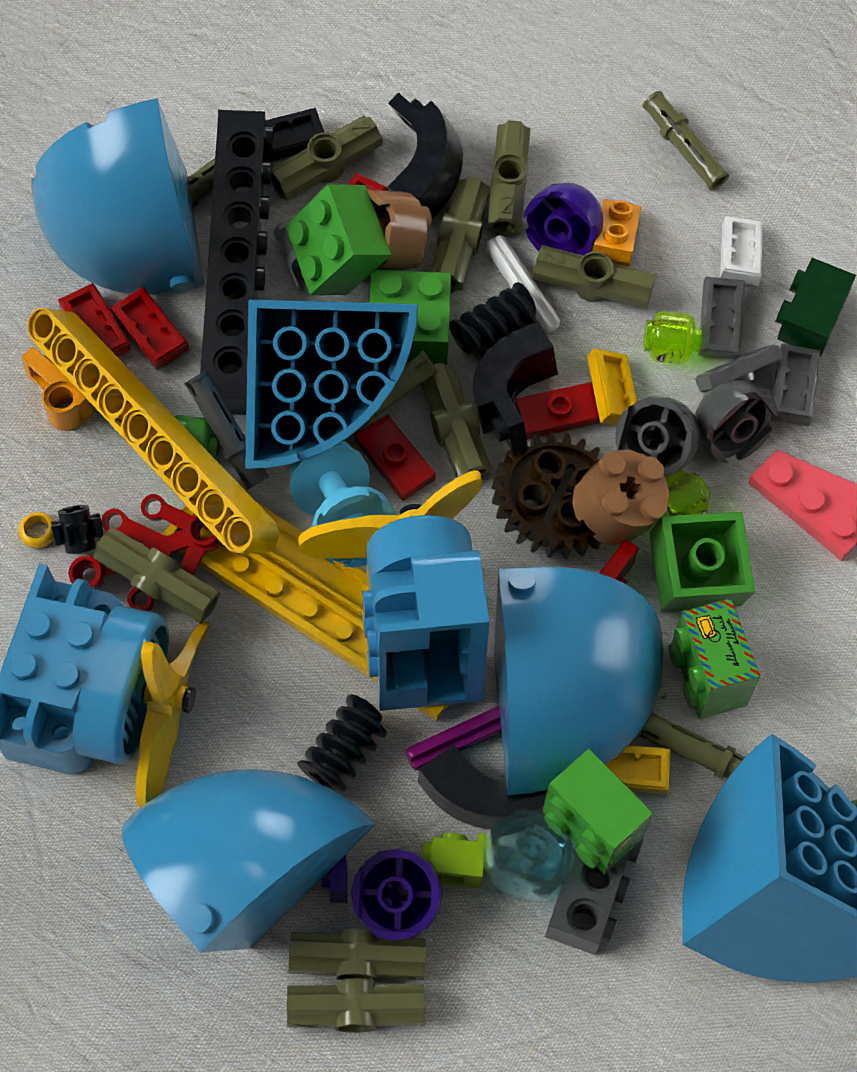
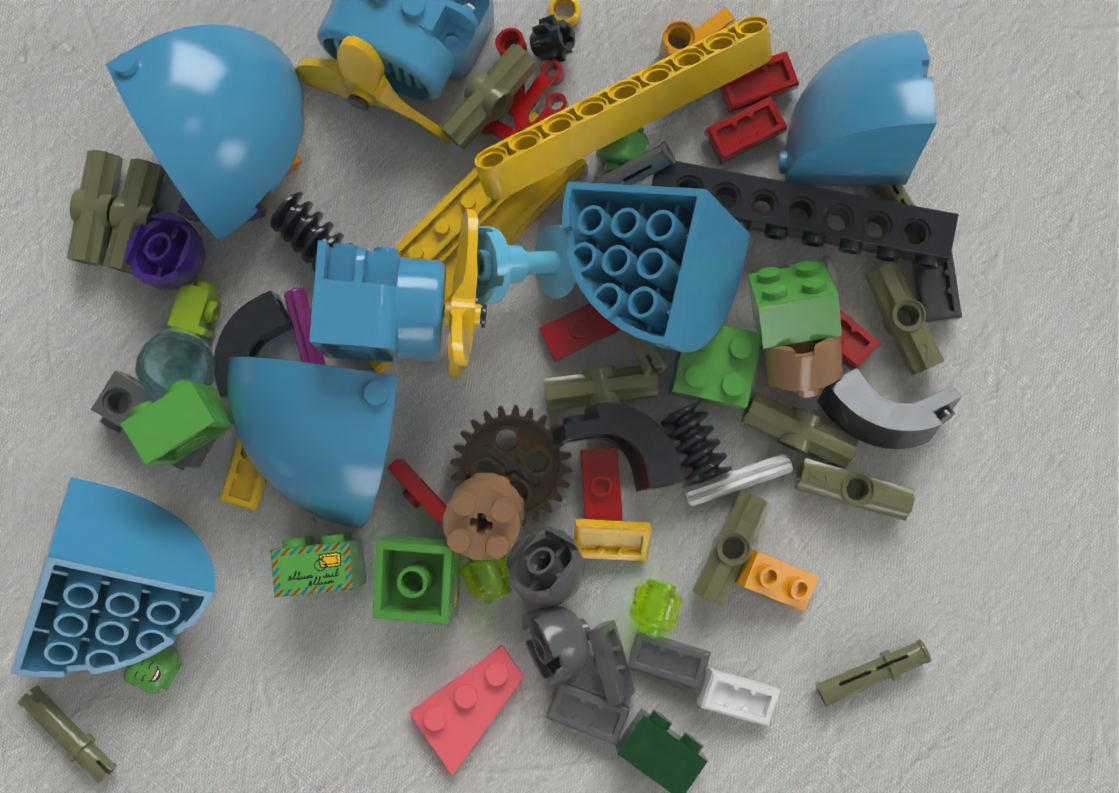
camera: 105 degrees right, 20 degrees up
(564, 218) = (795, 532): dark purple cylinder -> none
(692, 746) = (239, 554): olive pin -> none

